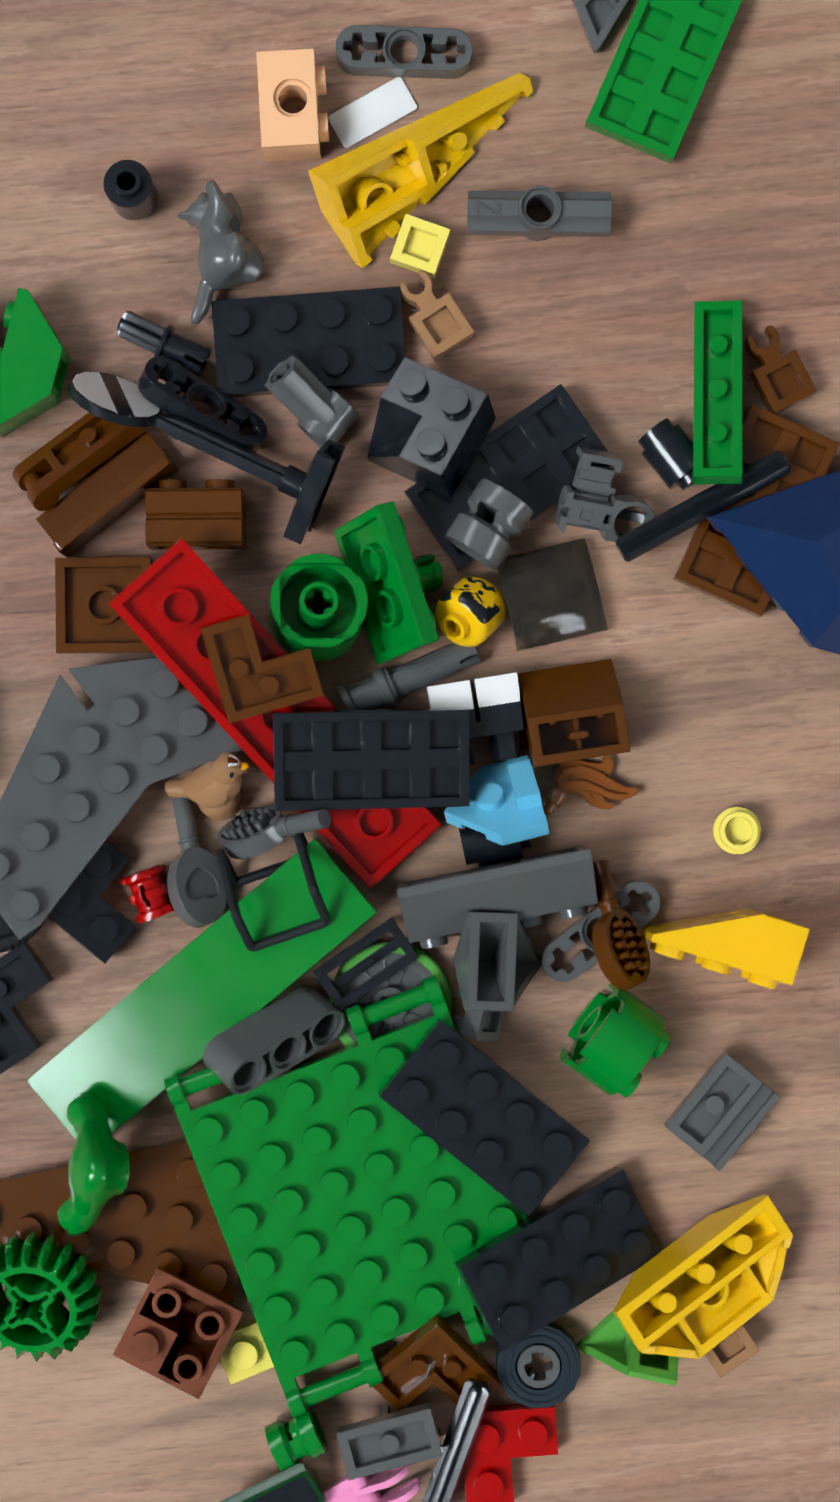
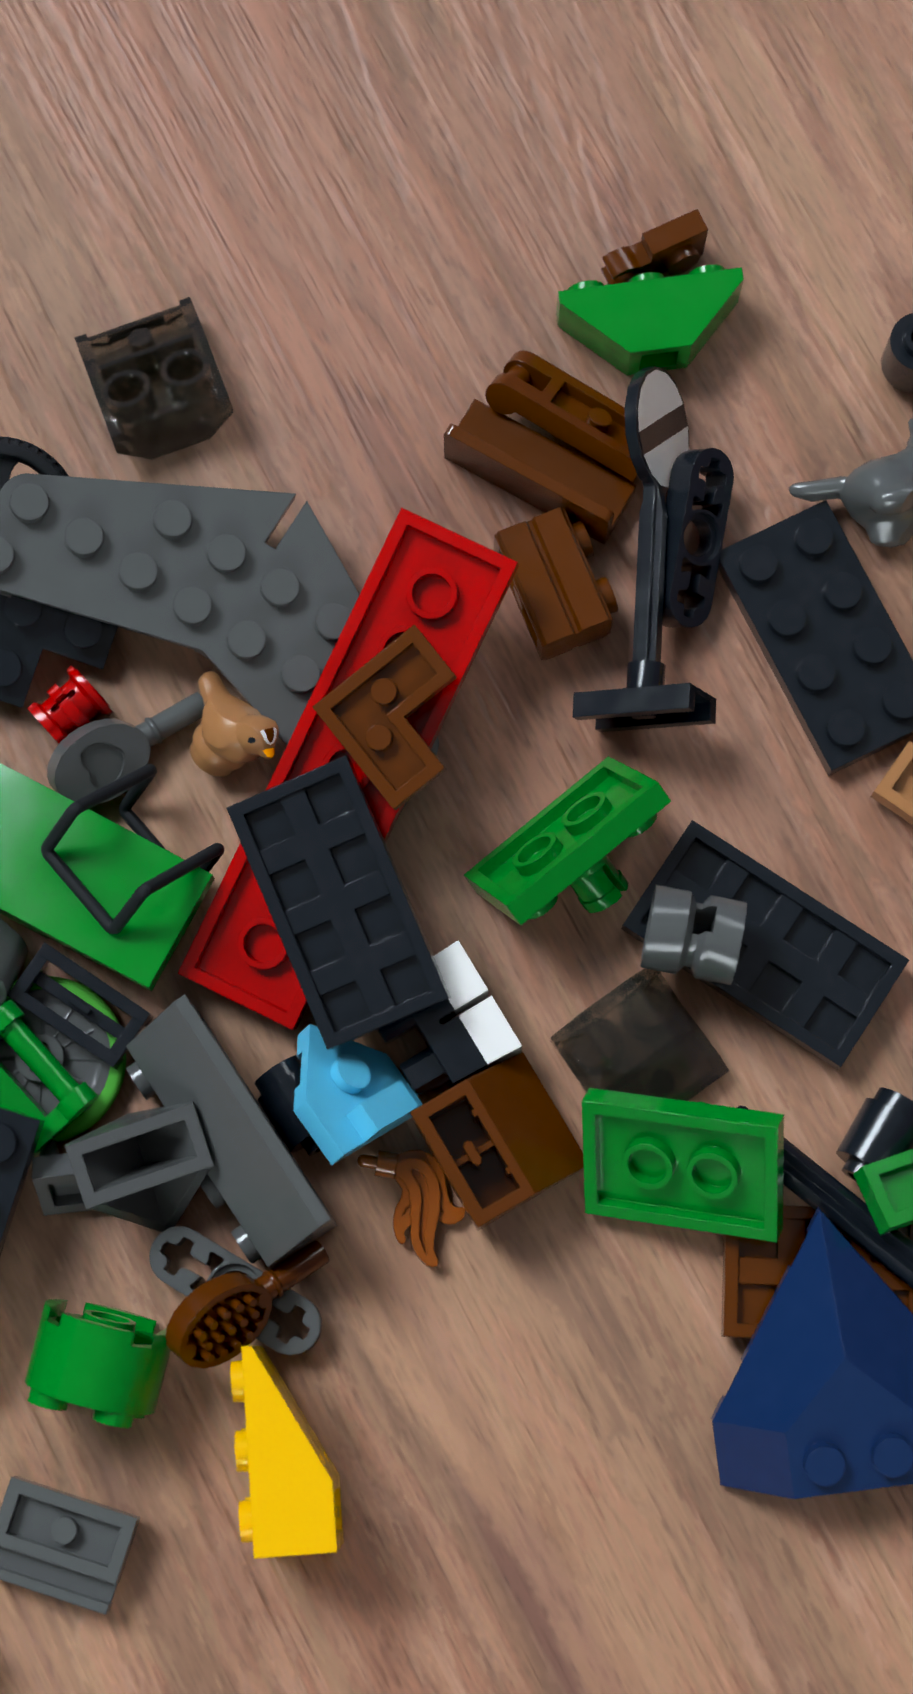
camera: 70 degrees right, 10 degrees down
(82, 604) = (371, 497): reddish brown plate -> none
(163, 342) = (751, 464): black axle -> none
(265, 828) = (202, 812): dark grey piece -> none
(319, 410) = (748, 675): dark grey piece -> none
(340, 595) = (510, 733): green brick -> none
(388, 686) = (439, 896): dark grey pin -> none
(429, 427) = (784, 817): black slope -> none
(470, 611) = (575, 959): yellow head -> none
(590, 504) = (774, 1055): dark grey piece -> none
(641, 595) = (683, 1164): none -> green plate
(736, 830) = (434, 1418): light yellow plate -> none

